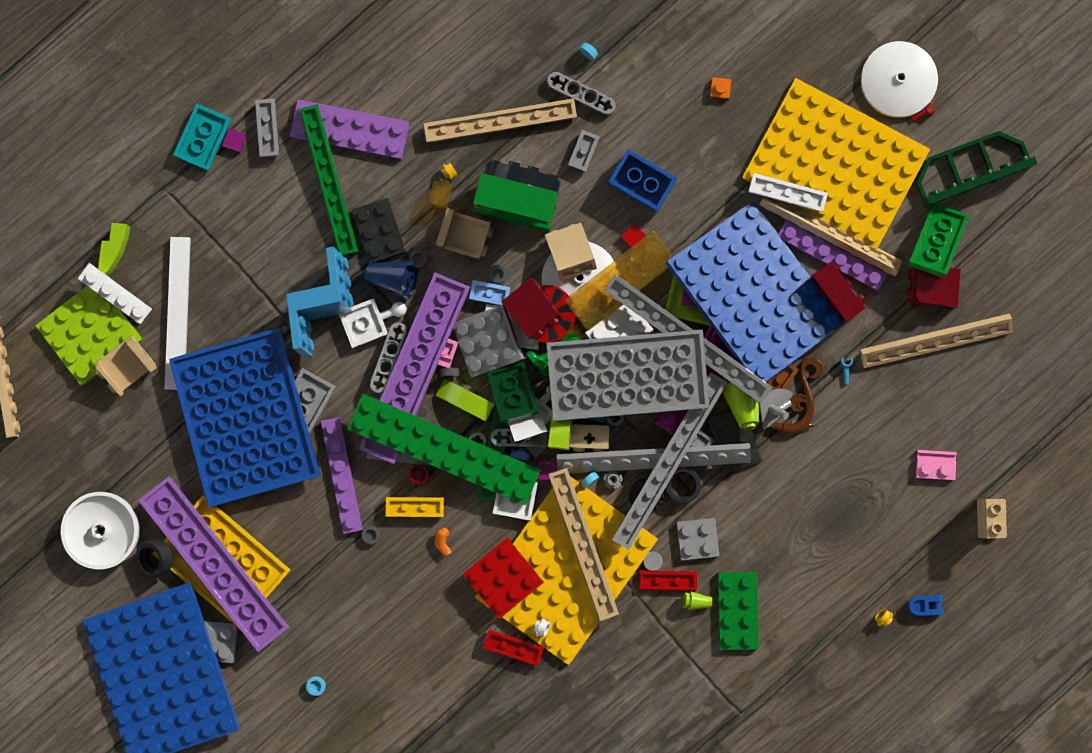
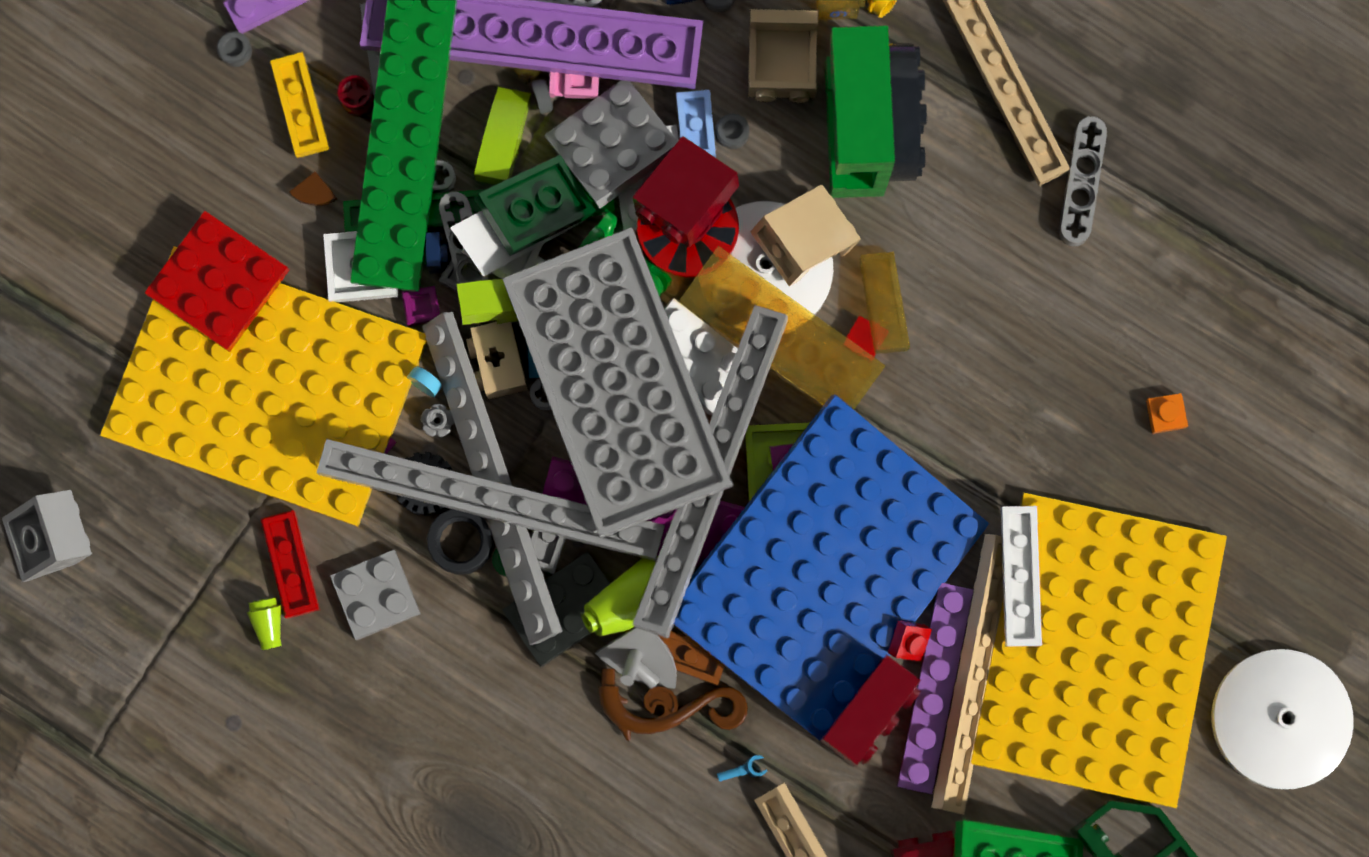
camera: 70 degrees right, 5 degrees down
(440, 541) = (254, 163): orange arm -> none
(465, 512) = (313, 191): none -> reddish brown tile
(513, 647) = (105, 334): red plate -> none
(541, 628) = (148, 369): white plate -> none
(583, 151) = (985, 212): light grey plate -> none
(583, 544) = (309, 398): tan plate -> none
(588, 51) = (1159, 171): medium azure tile -> none
(616, 708) = (46, 535): none -> light grey slope
(618, 220) = (884, 302): none -> clear yellow tile
(642, 181) = (963, 322): blue brick -> none
(653, 561) = (316, 528): light grey tile -> none
(738, 610) = (269, 699): green plate -> none
(804, 261) = (909, 641): none -> red plate
(927, 110) = (1243, 783): red hand -> none

